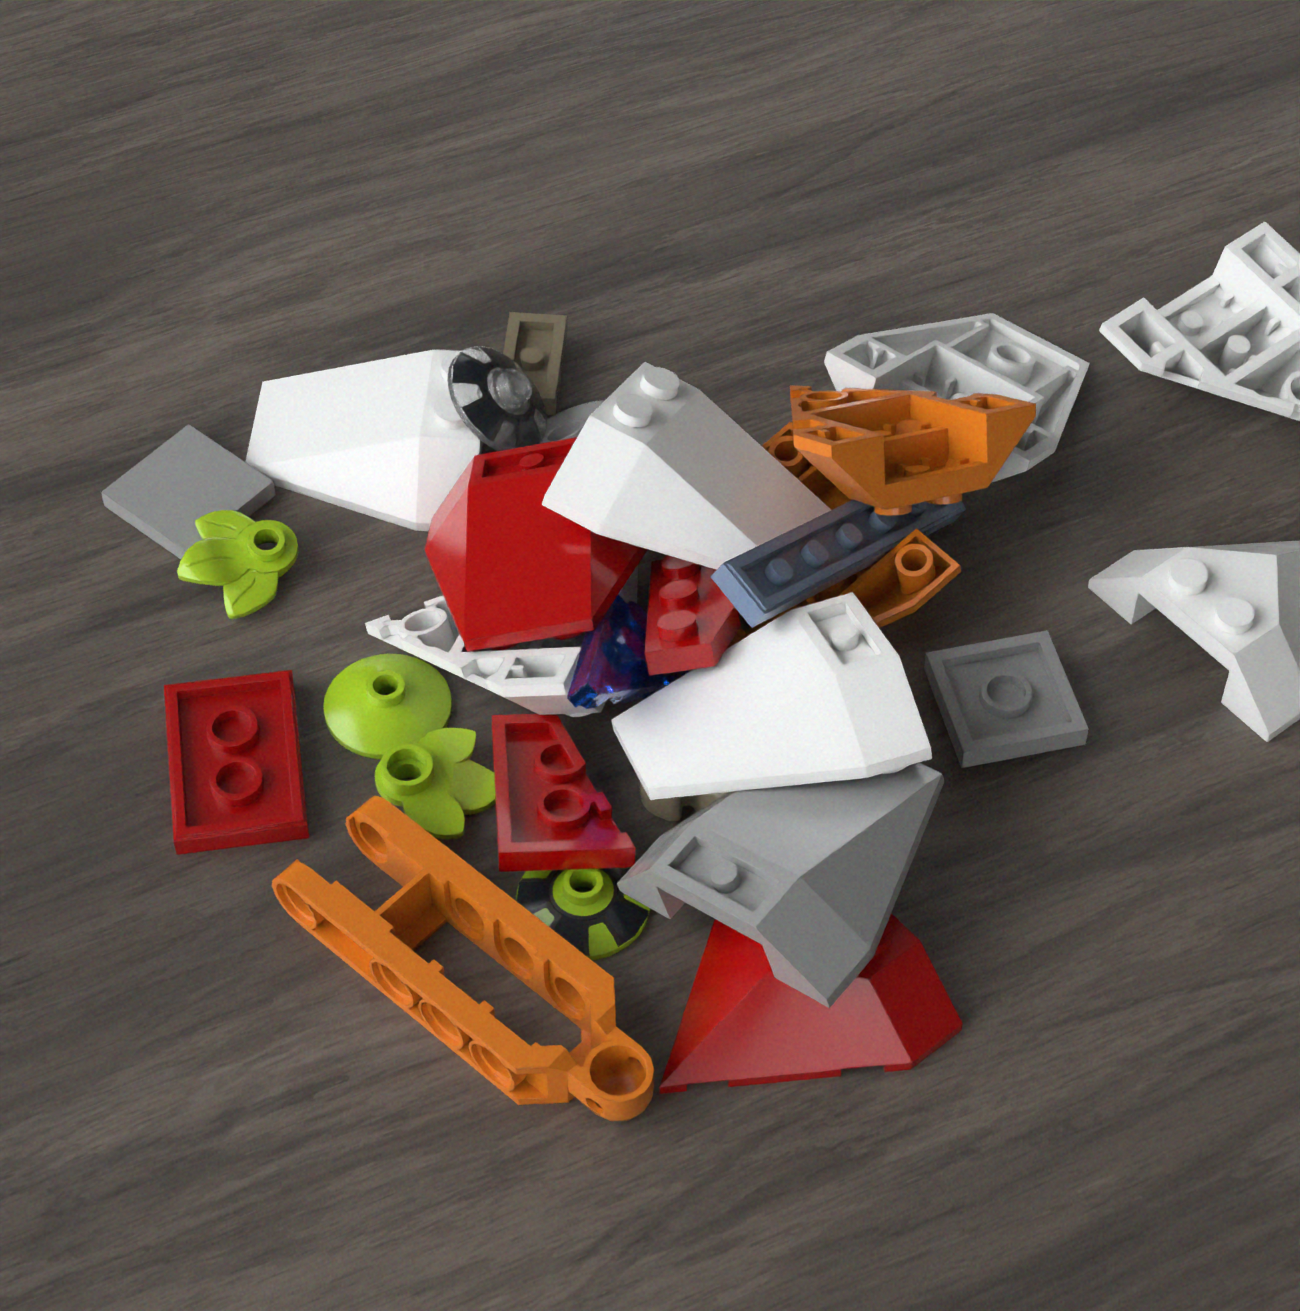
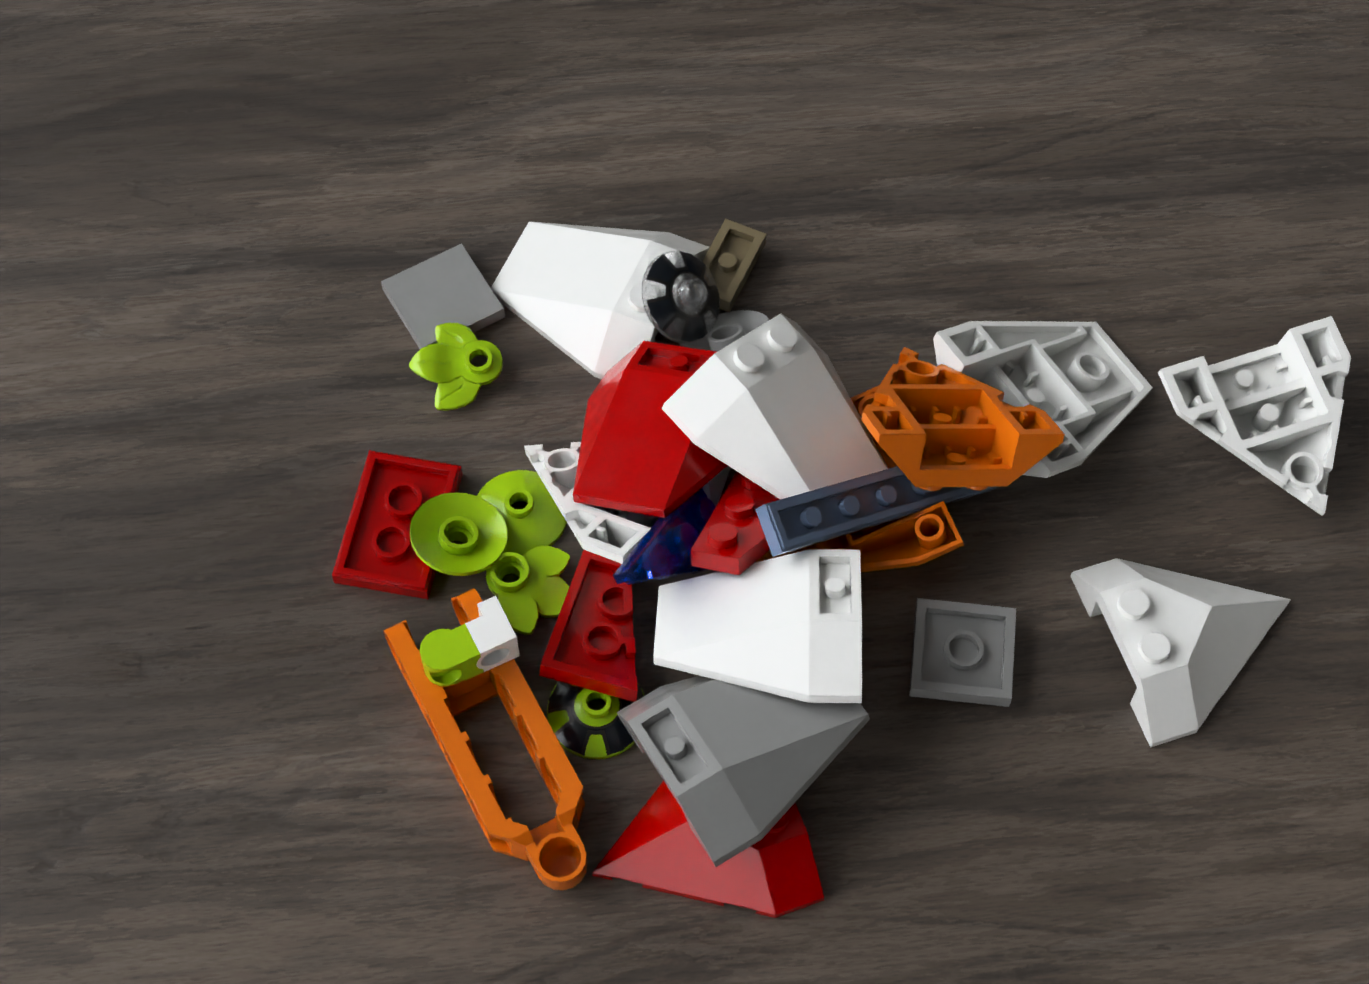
camera: 20 degrees right, 10 degrees up
(324, 742) = (461, 519): none -> lime dish
(405, 854) = (470, 648): none -> leg

